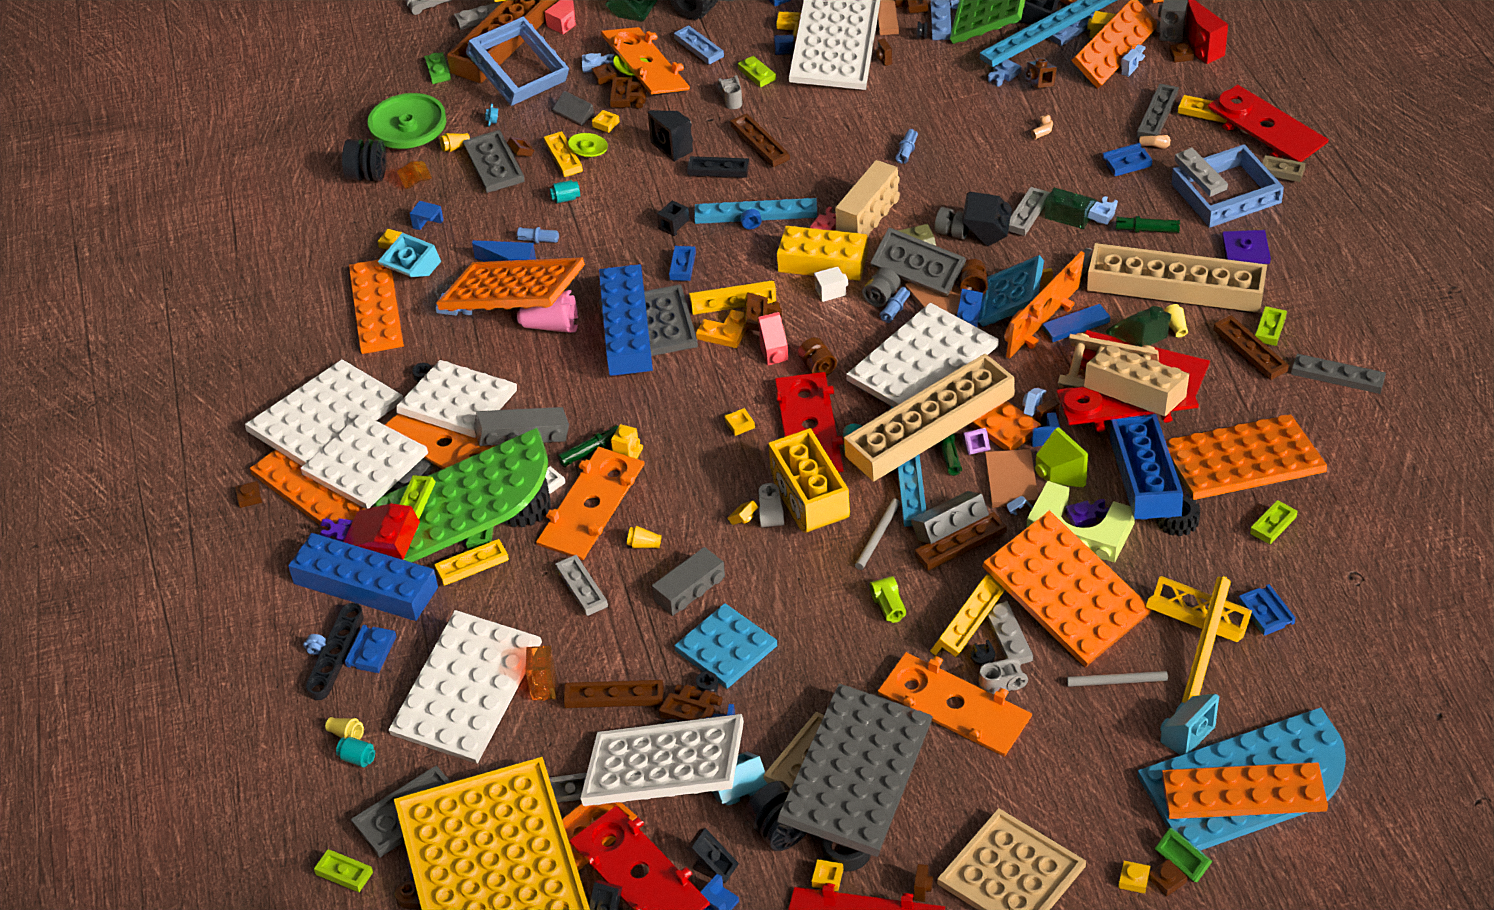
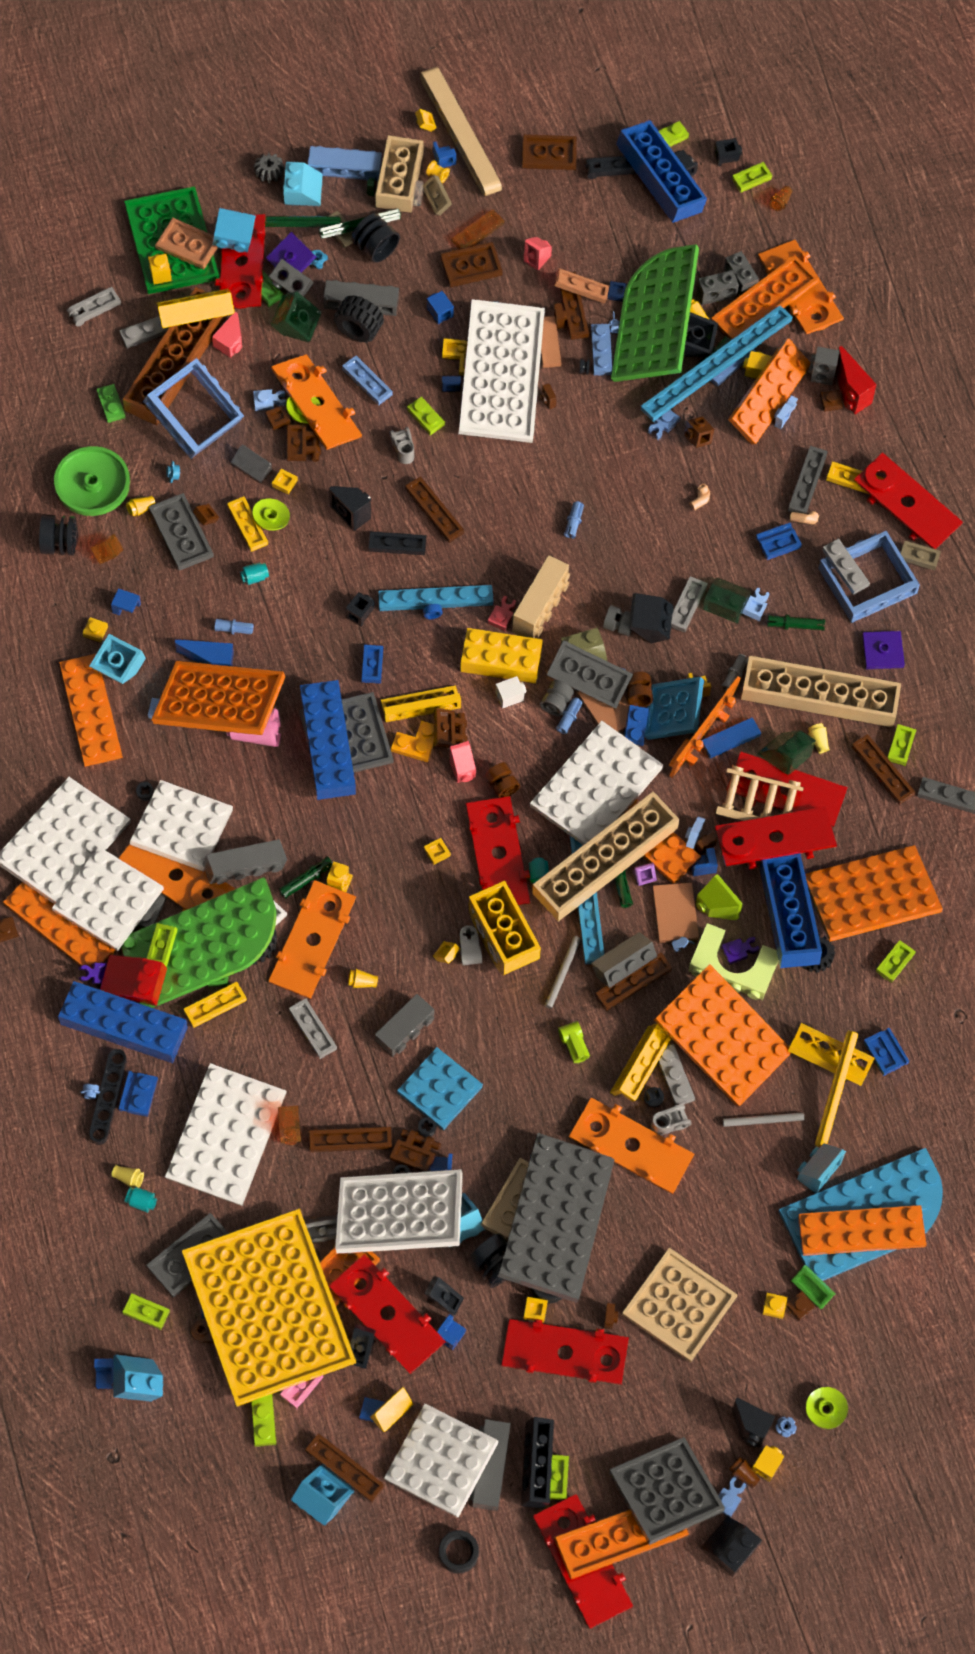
camera: 10 degrees left, 20 degrees up
(1136, 380) = (784, 823): tan brick -> none

